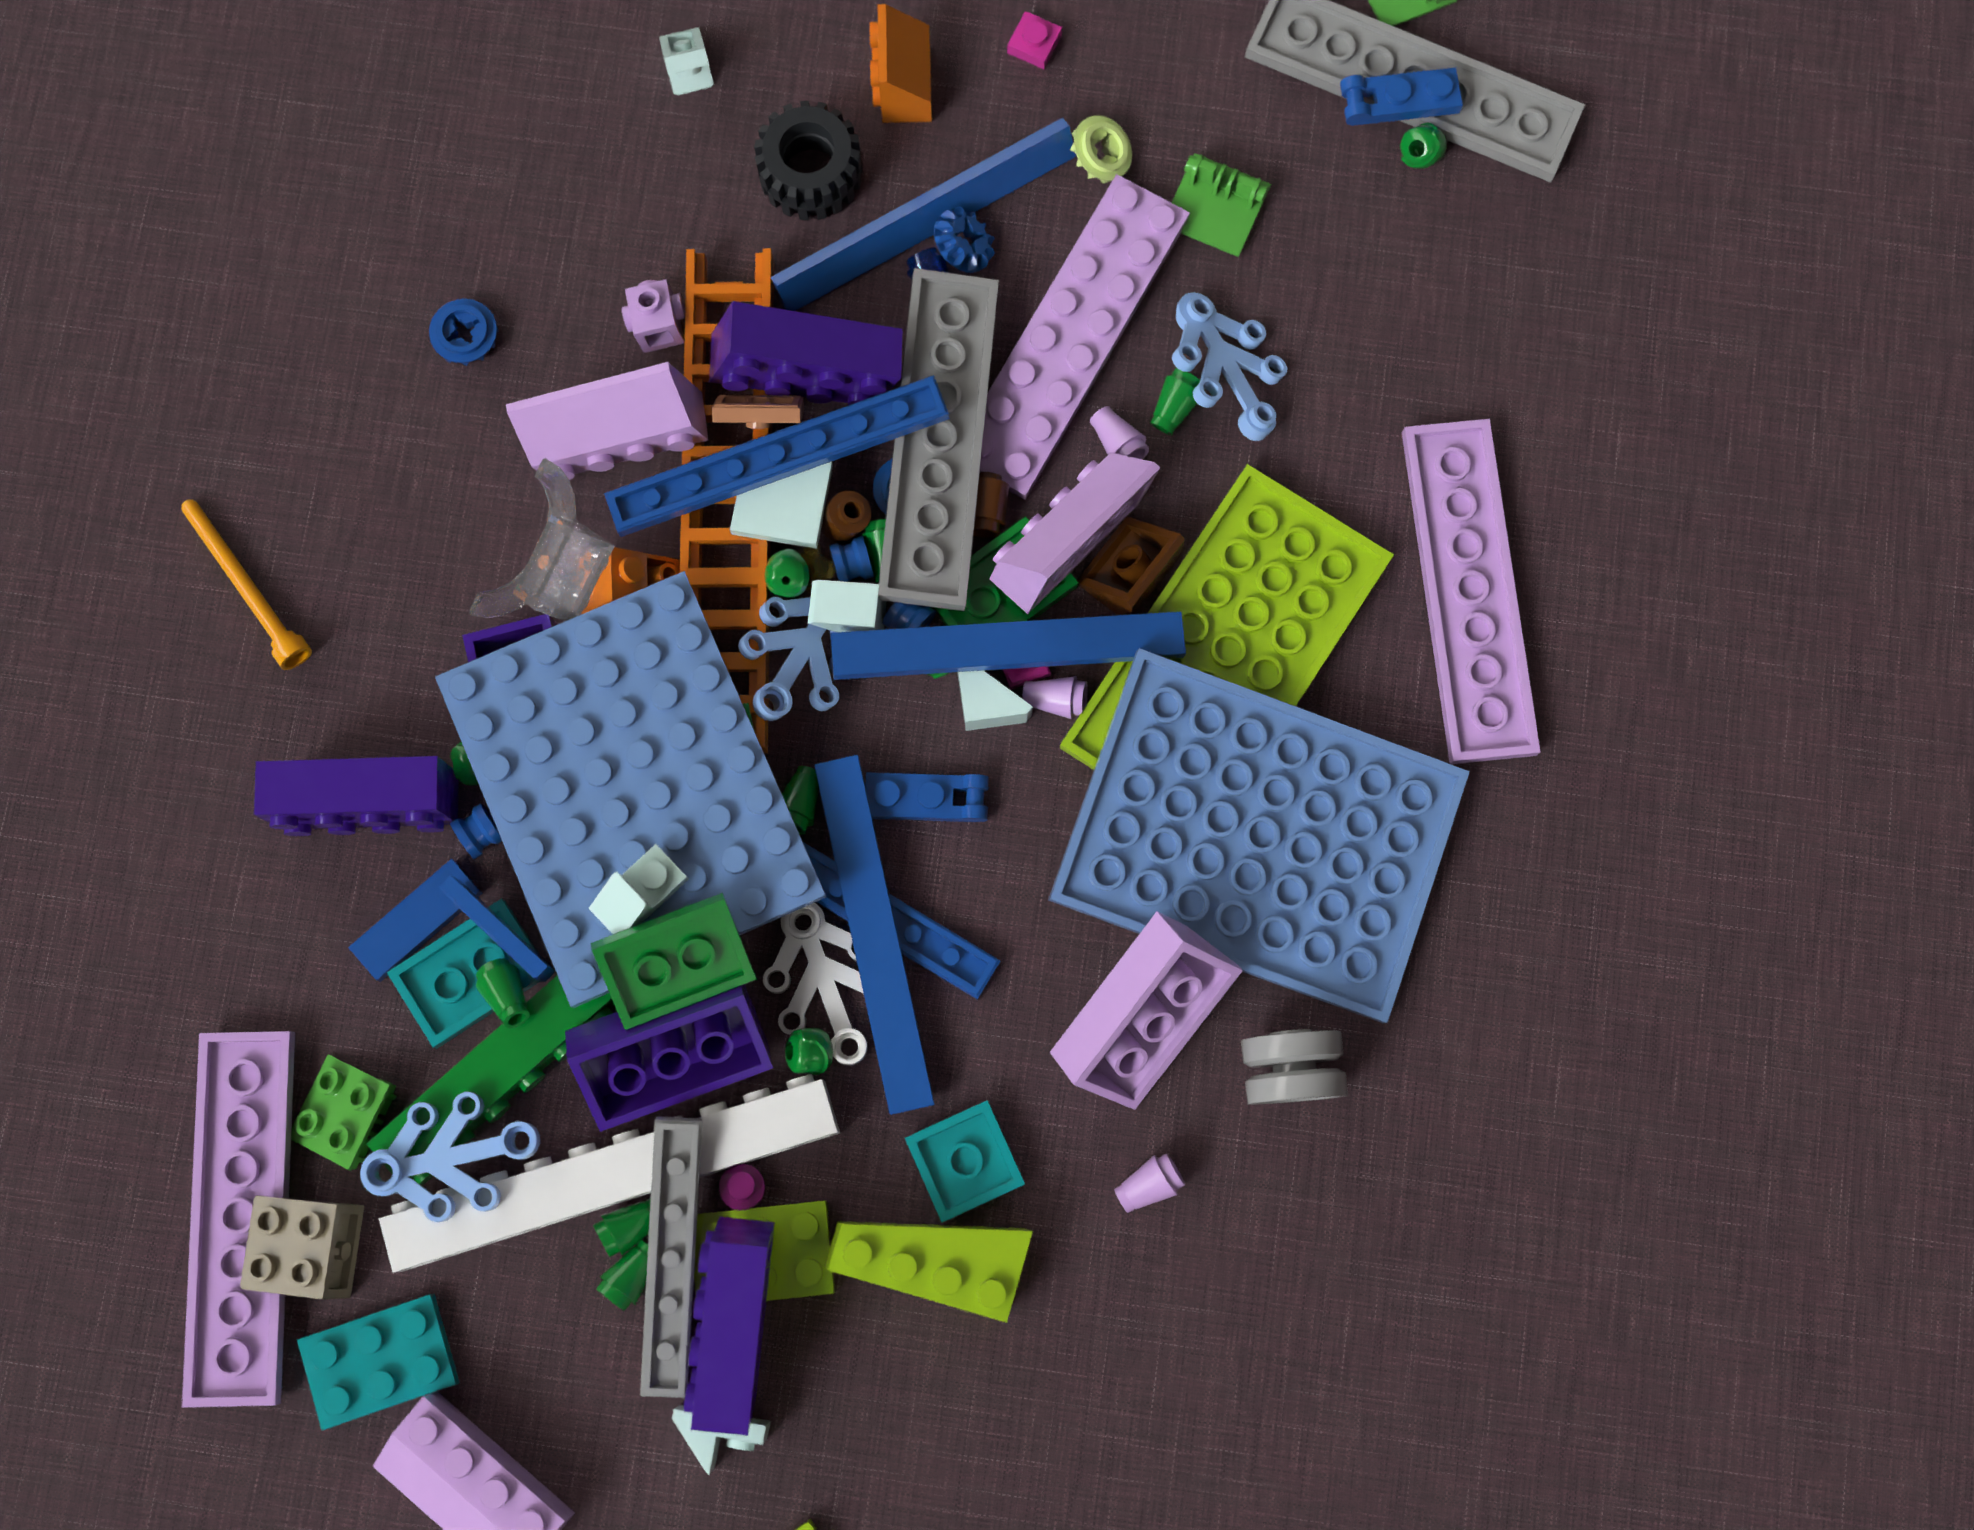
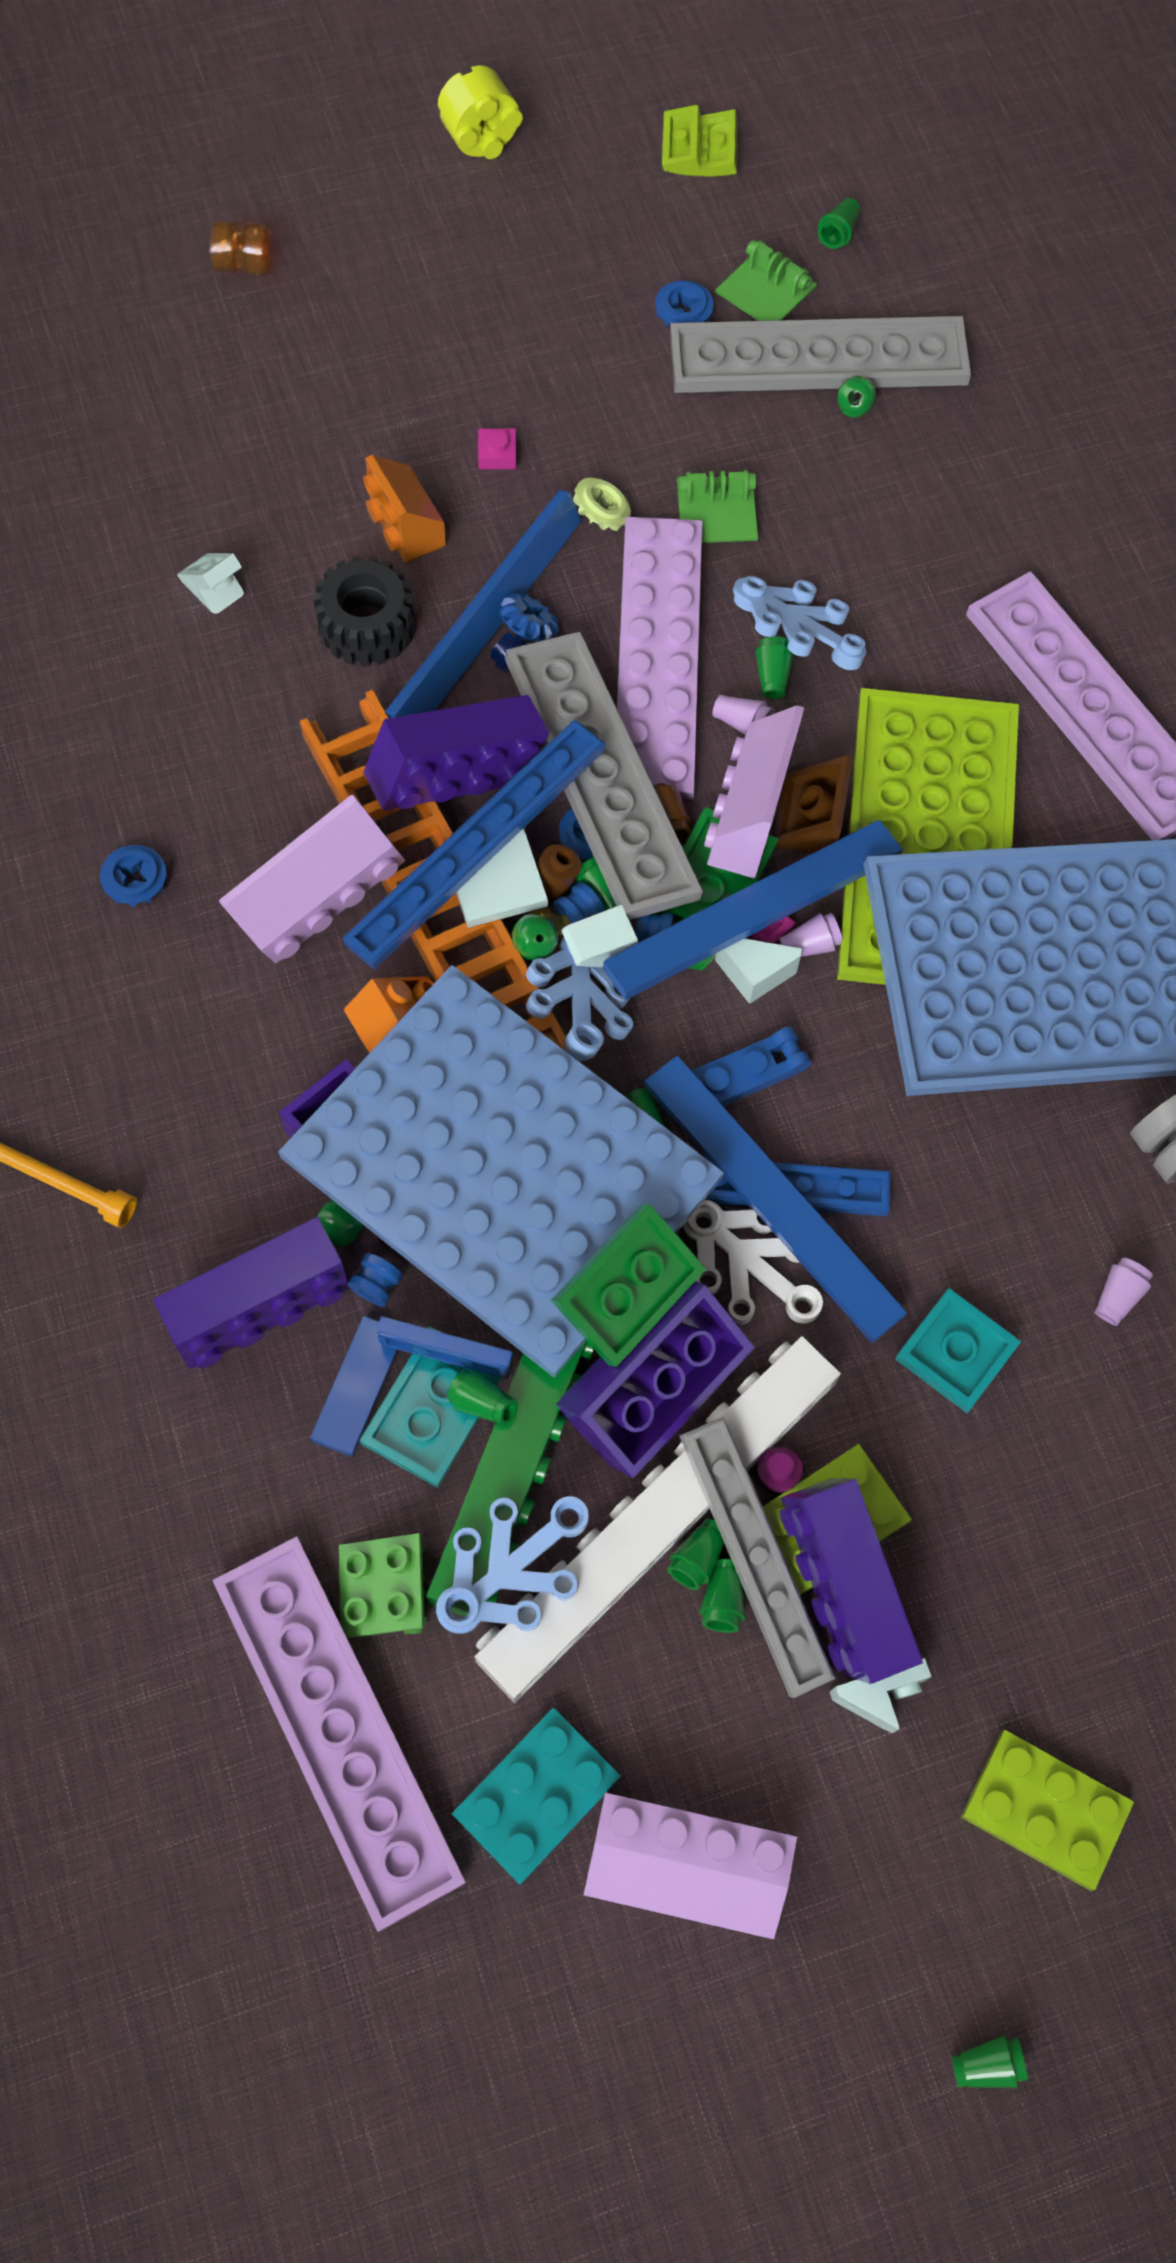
camera: 30 degrees left, 10 degrees down
(302, 1248) = (410, 1724): dark tan bracket -> none
(562, 564) = (333, 1014): clear piece -> none
(637, 892) = (564, 1241): light aqua slope -> none
(654, 315) = (300, 785): lavender brick -> none
(758, 410) = (438, 815): nougat plate -> none
(809, 1051) = (773, 1323): green piece -> none
(945, 1264) = (995, 1441): lime wedge -> none
(1144, 1012) = (1040, 1144): lavender slope -> none
(1401, 96) = (819, 365): blue plate -> none

